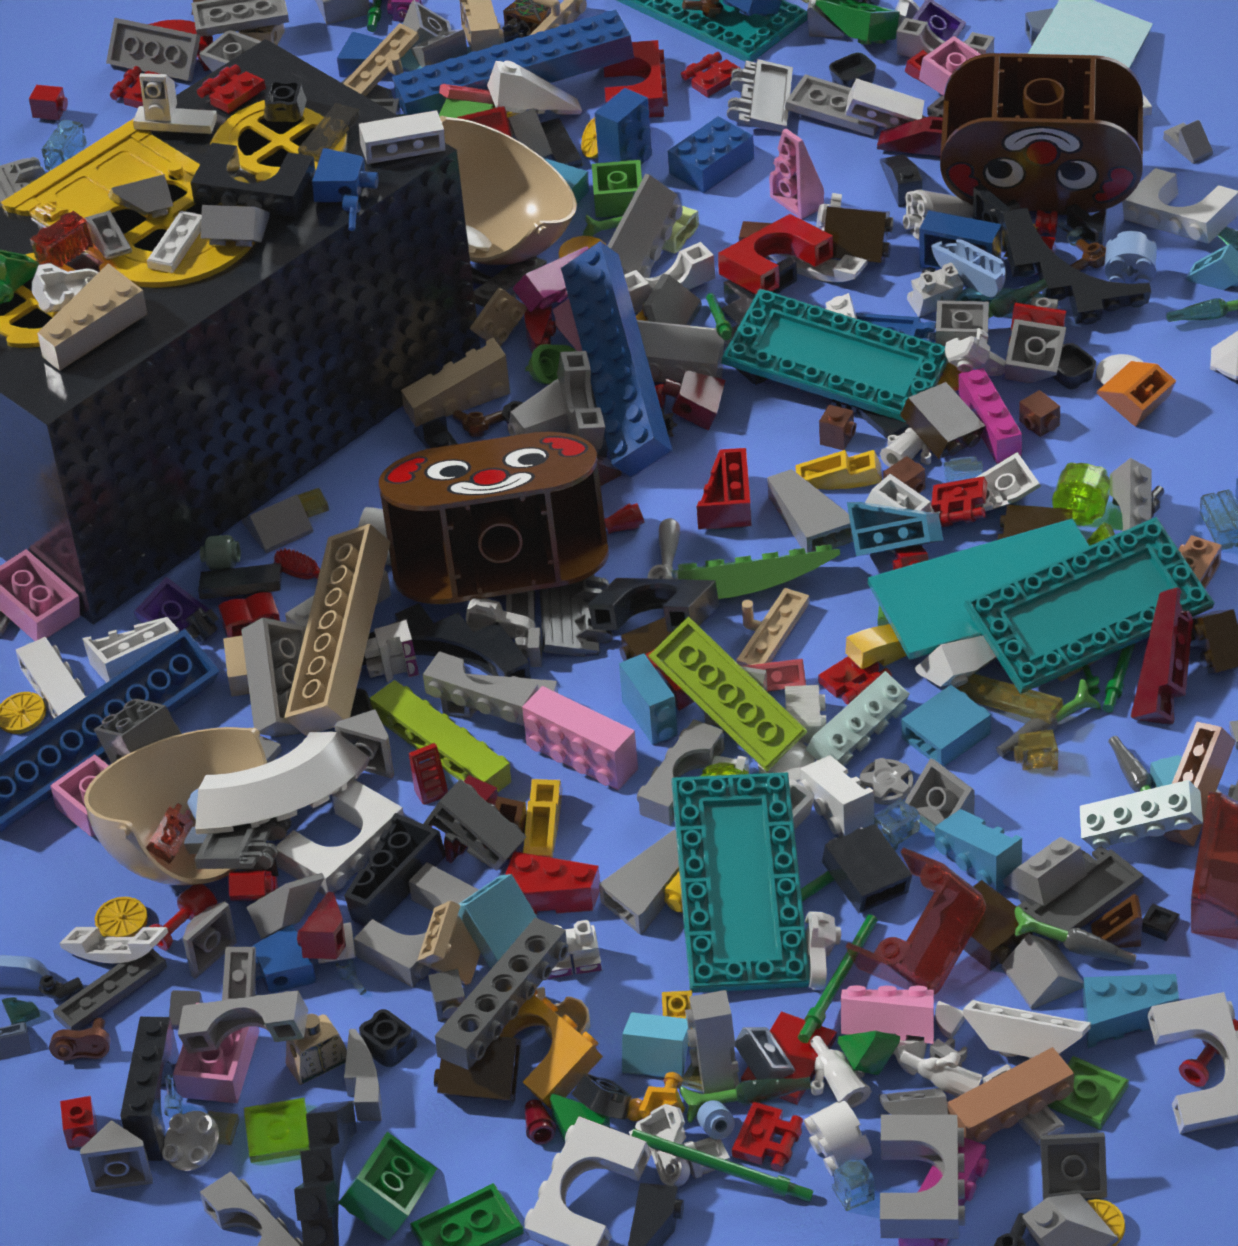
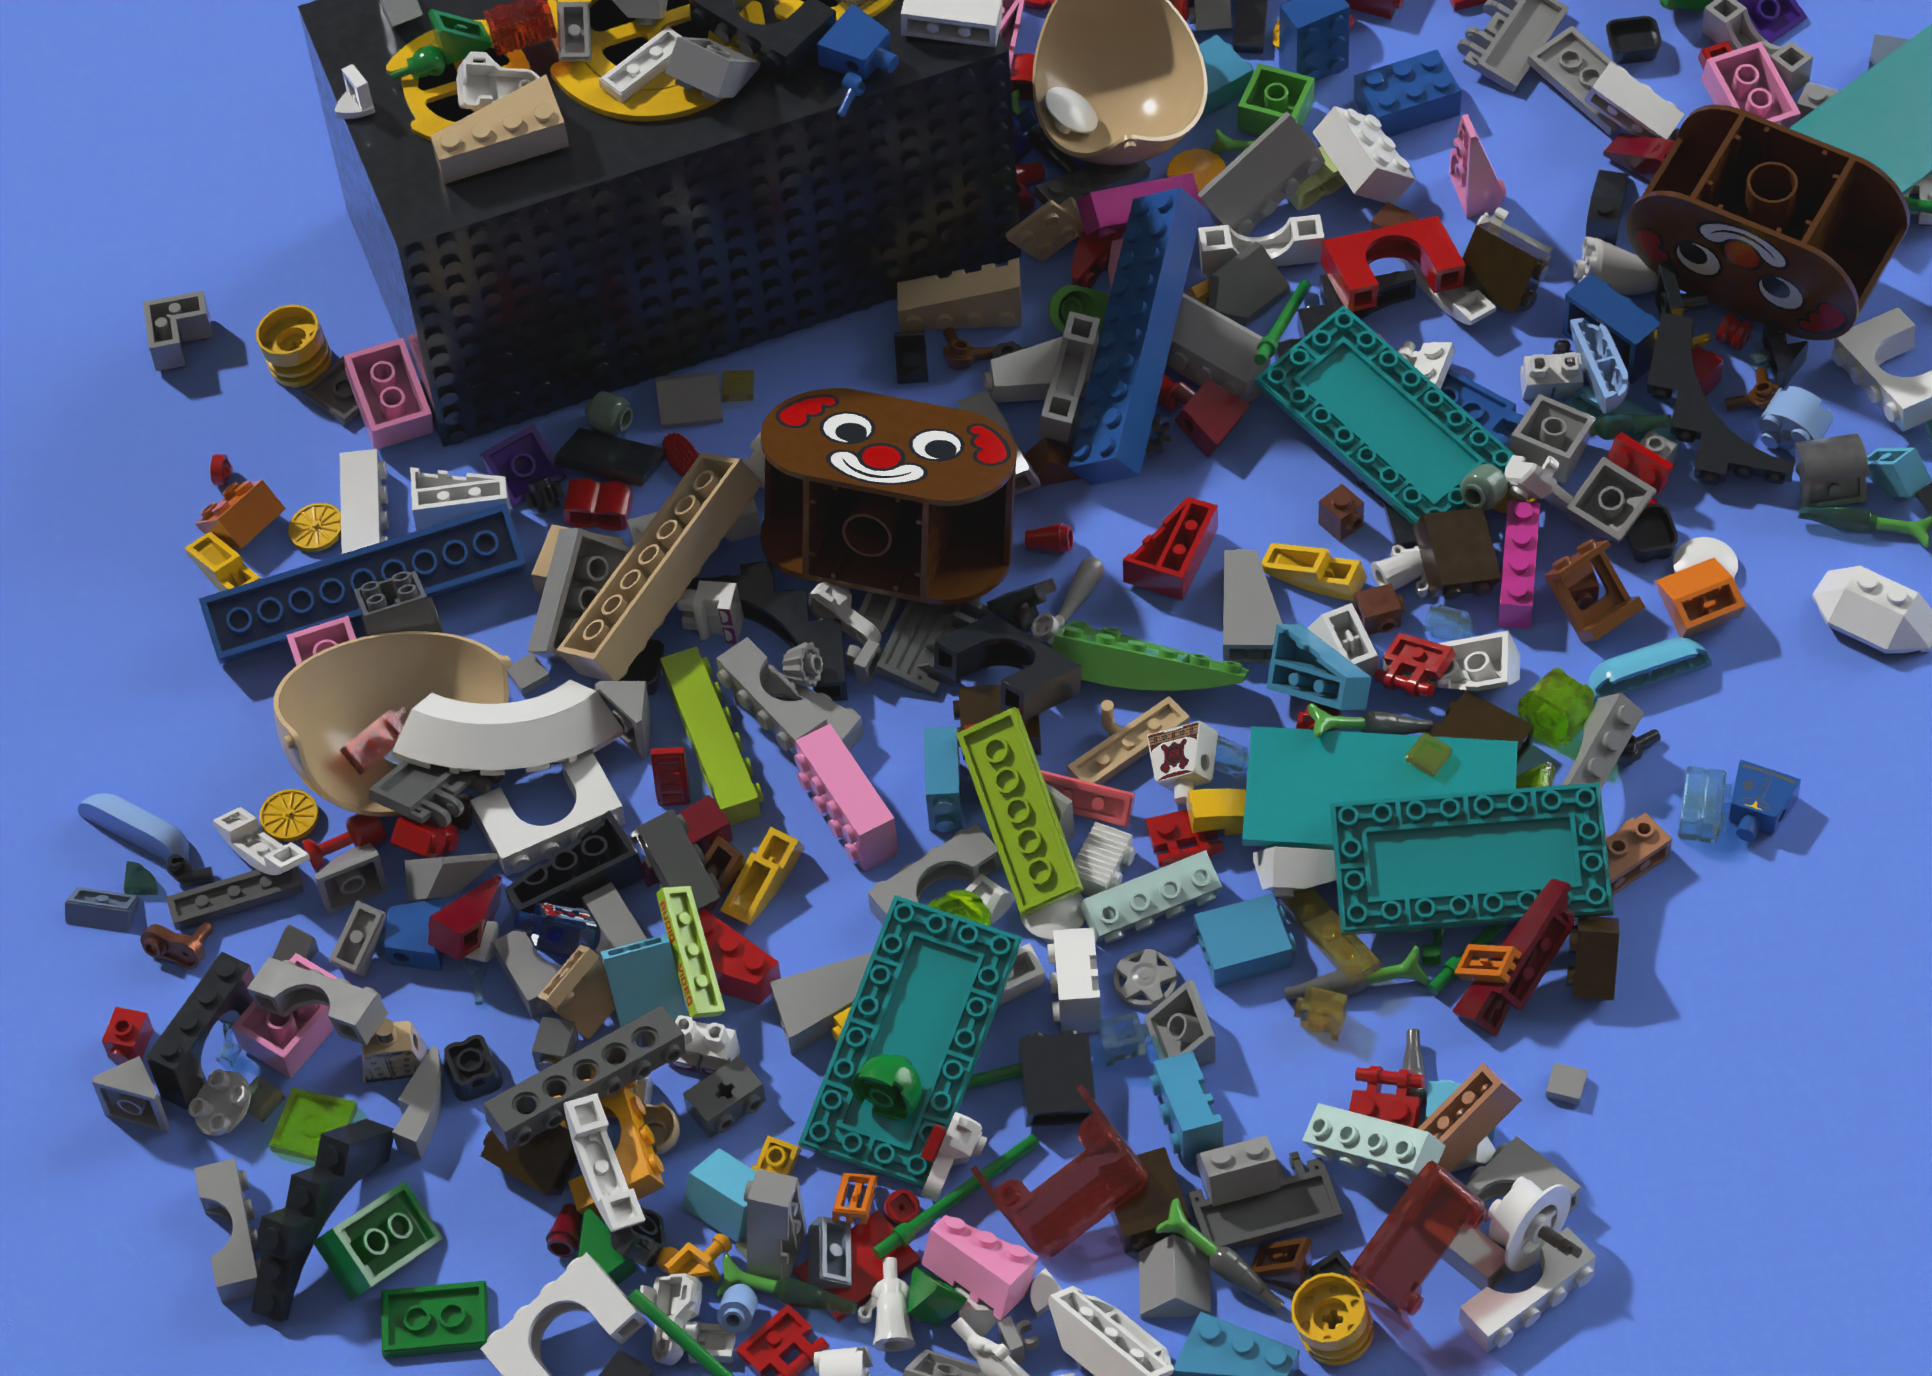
camera: 25 degrees right, 10 degrees up
(405, 906) = (557, 927): none -> clear blue torso
(492, 658) = (803, 665): none -> light grey piece
(531, 882) = (690, 952): none -> lime plate
(549, 1052) = (600, 1165): none -> white slope
(609, 979) = (724, 1097): none -> dark grey brick
(631, 564) = (1020, 605): none -> black slope
(709, 196) = (1364, 155): none -> white brick
(745, 914) = (889, 1085): none -> green cylinder
(752, 1016) = (852, 1211): none -> orange tile
(798, 1002) = (901, 1206): none -> red tile
(803, 941) = (934, 1142): none -> red tile
(825, 620) = (1183, 757): none -> white torso
(852, 612) = (1230, 757): none -> clear light blue brick
(938, 368) = (1484, 487): none -> sand green head
(950, 546) = (1369, 722): none -> piece
(1014, 548) = (1428, 754): none -> clear yellow tile
(1076, 418) = (1606, 612): none -> dark orange window
(1129, 444) = (1648, 666): none -> medium azure brick
(1130, 768) = (1389, 1107): none -> red plate
(1144, 674) = (1484, 969): none -> orange tile
(1177, 280) = (1832, 471): none -> flat silver brick
(1186, 944) = (1317, 1310): none -> yellow wheel

